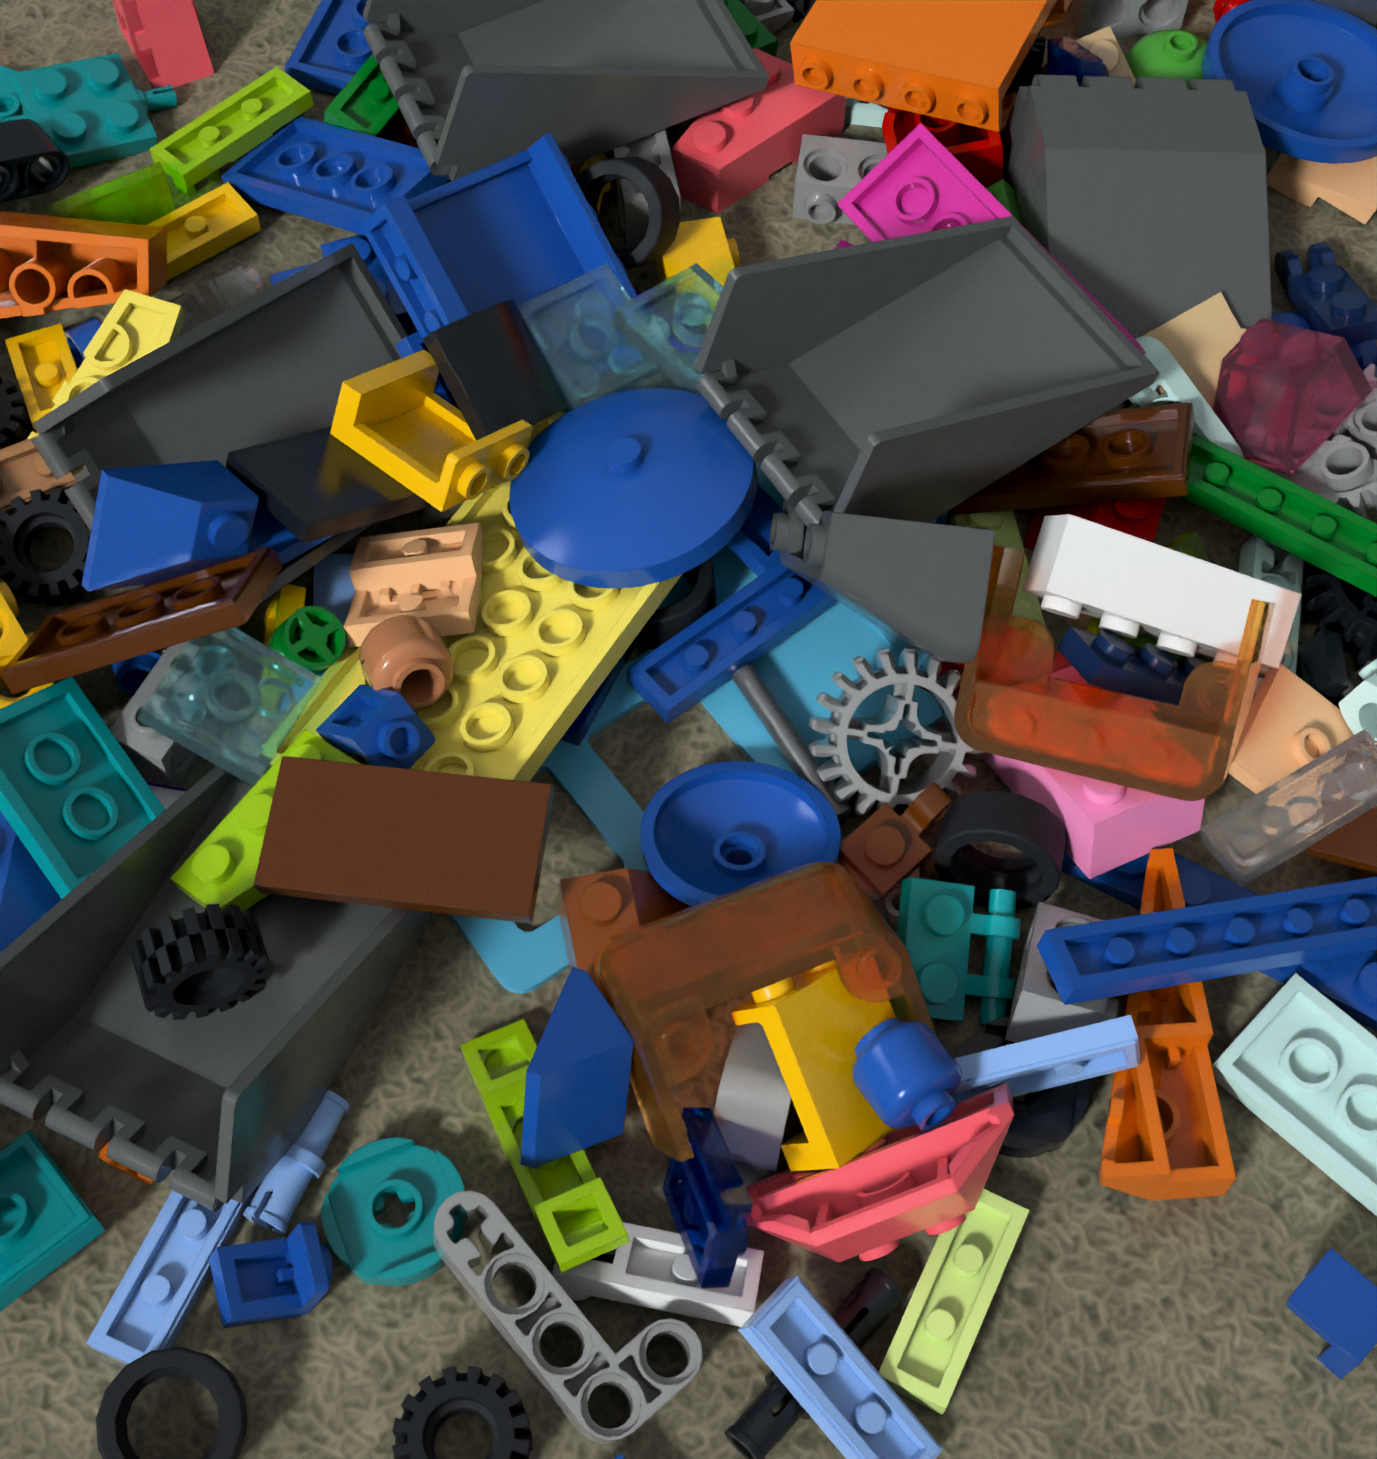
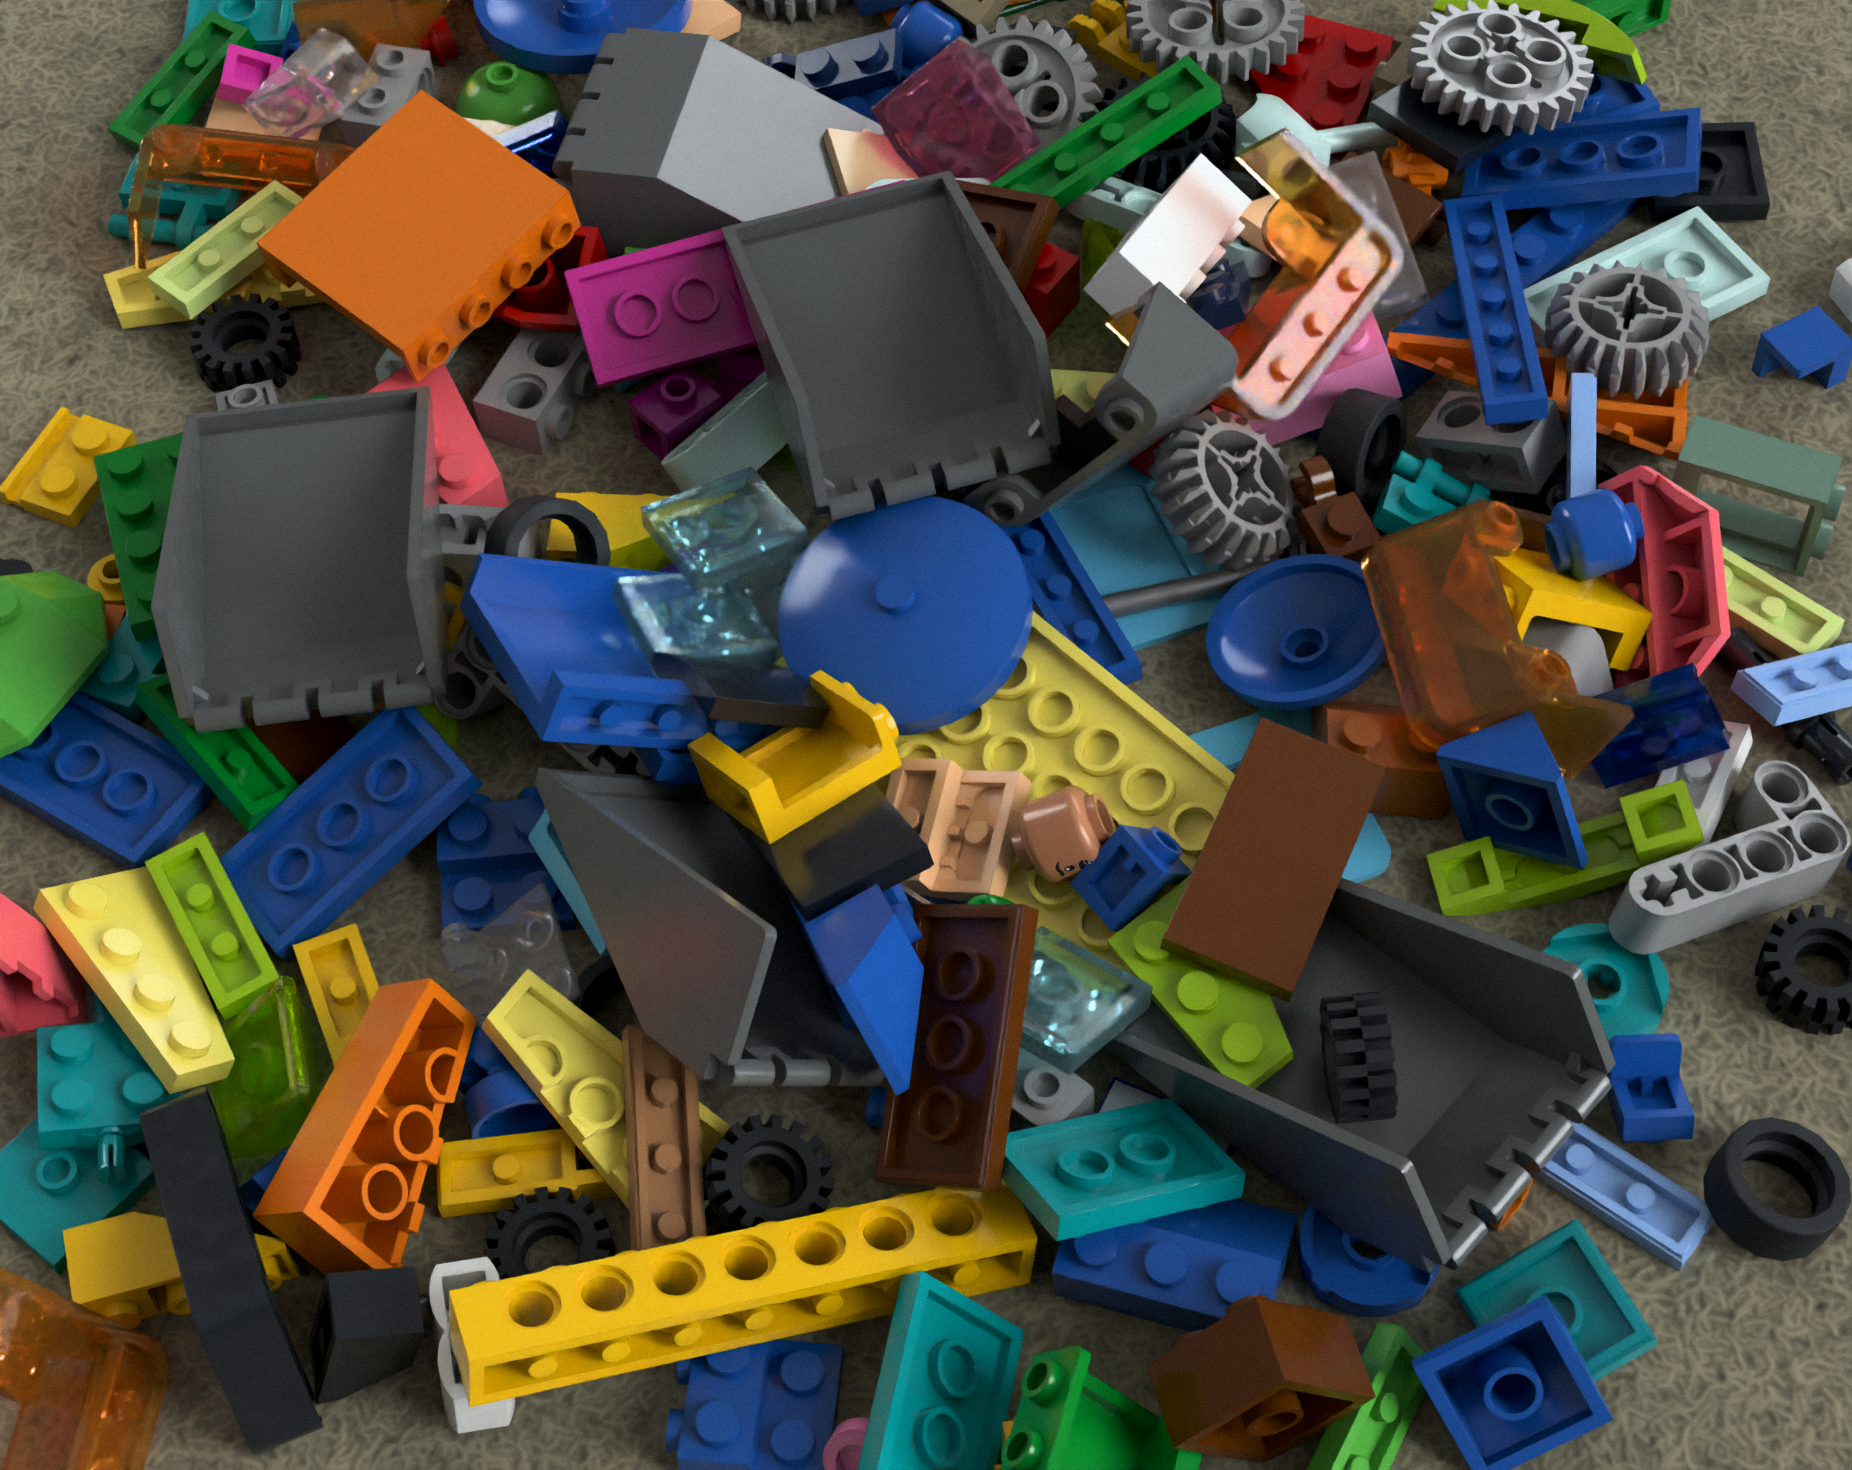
camera: 70 degrees left, 5 degrees down
(172, 90) = (141, 972): none -> light yellow wing
(1073, 1267) = (1772, 468): none -> sand green window
(1249, 1107) = (1628, 329): none -> light grey gear

